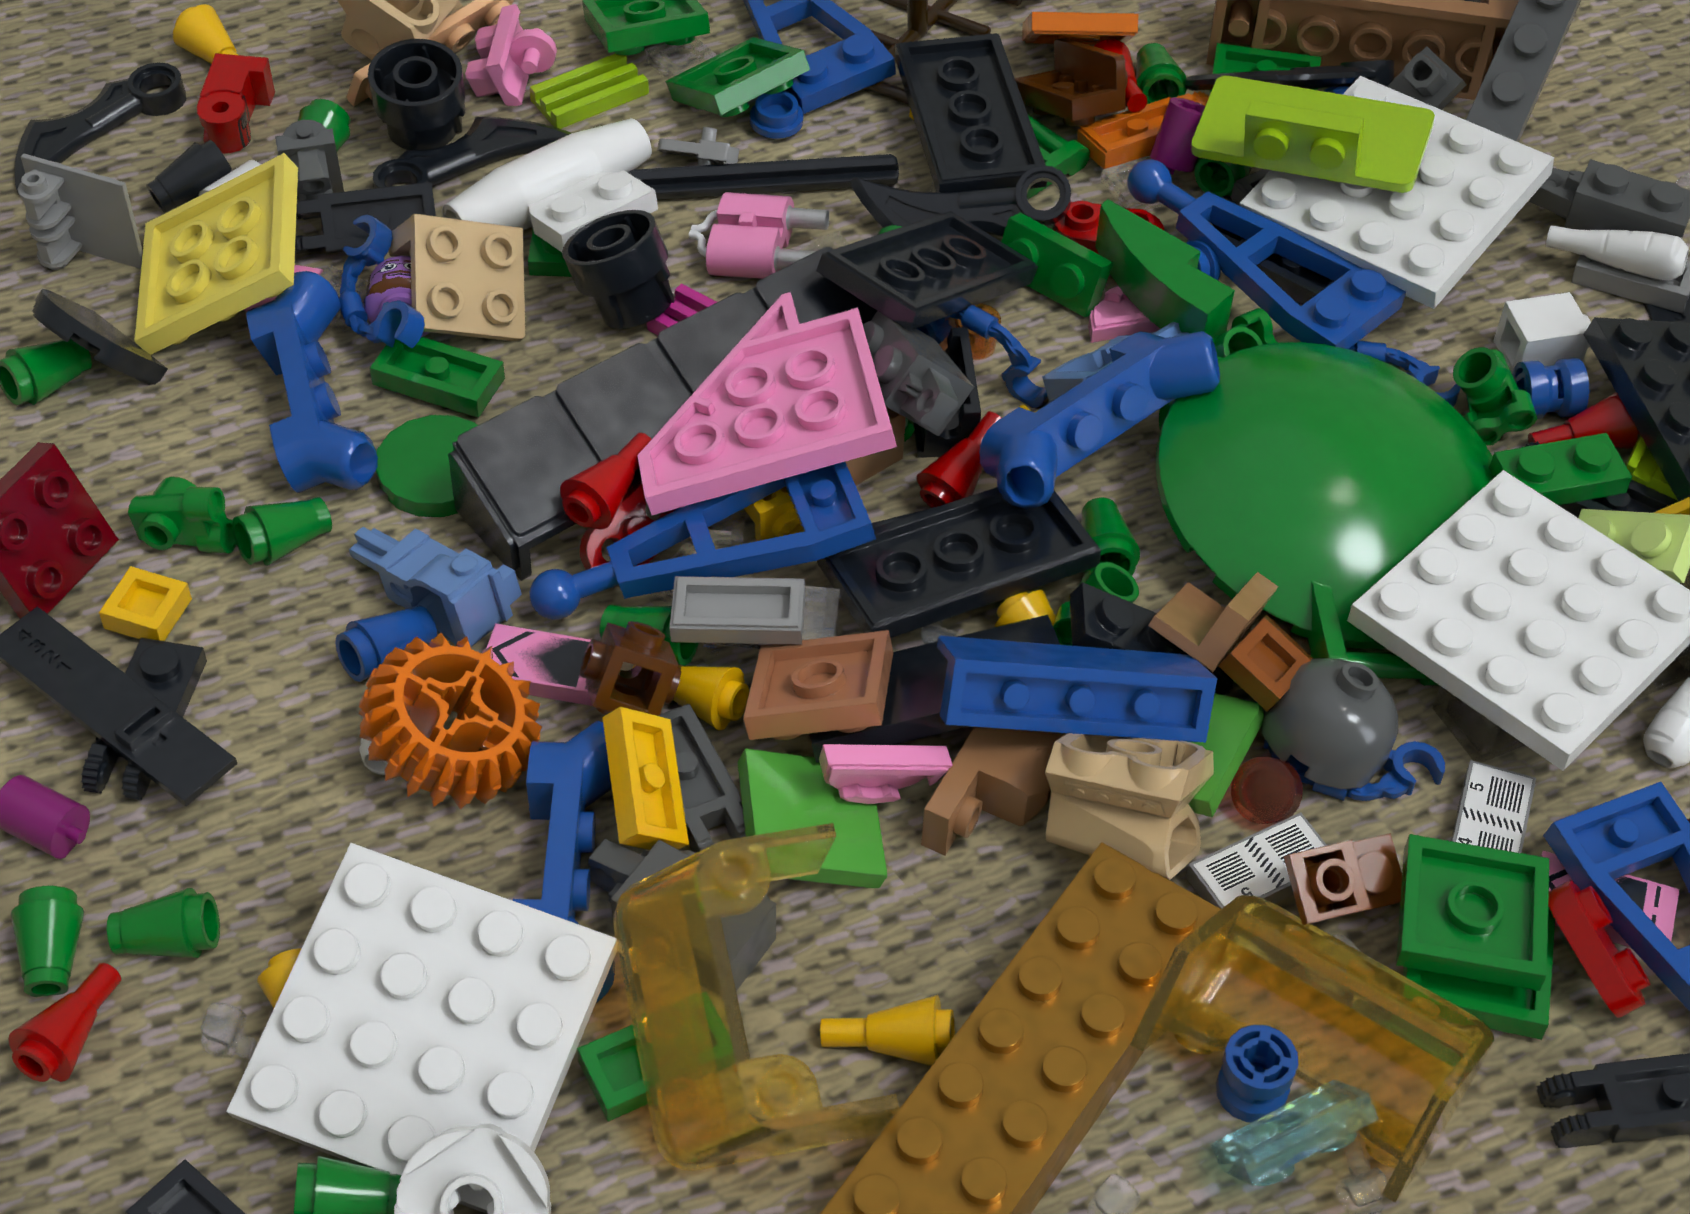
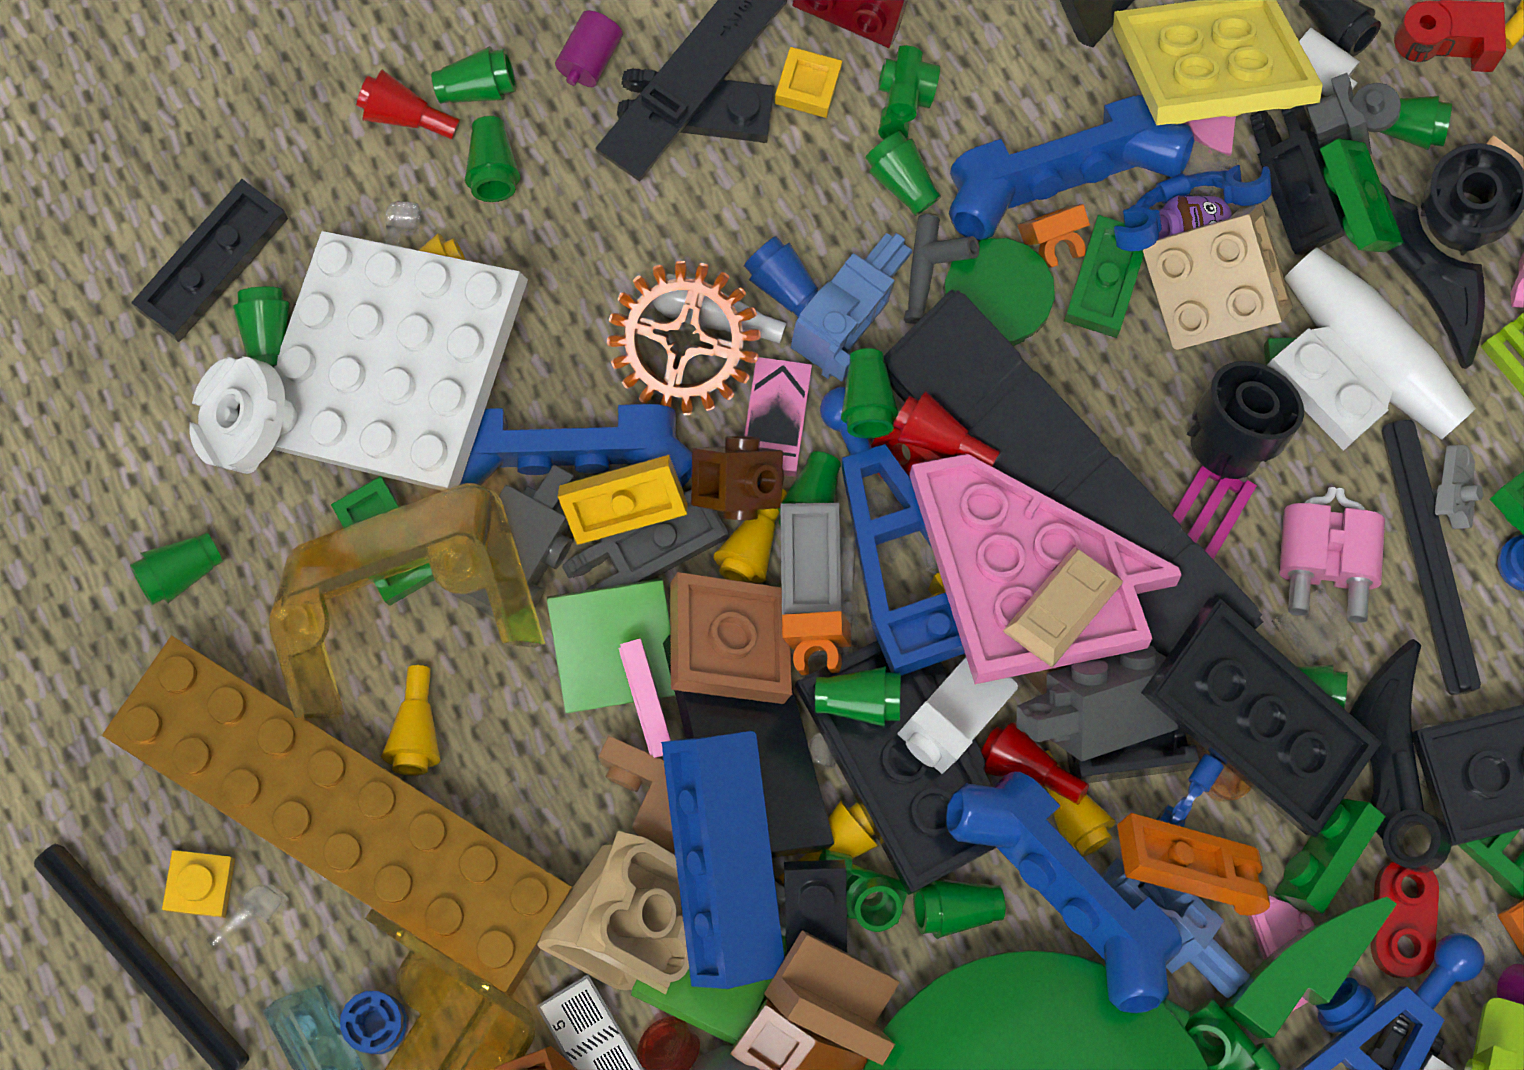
camera: 85 degrees right, 25 degrees up
(375, 169) = (1366, 209): none -> green plate
(379, 404) = (1054, 227): none -> orange tile
(382, 509) = (927, 253): none -> dark grey piece
(553, 544) = (868, 396): none -> green cone
(820, 366) = (1063, 606): none -> tan tile
(826, 595) = (814, 633): none -> orange tile
(896, 557) = (861, 696): none -> green cone
(927, 498) = (954, 717): none -> white bracket
(1067, 342) = (1193, 863): none -> orange plate

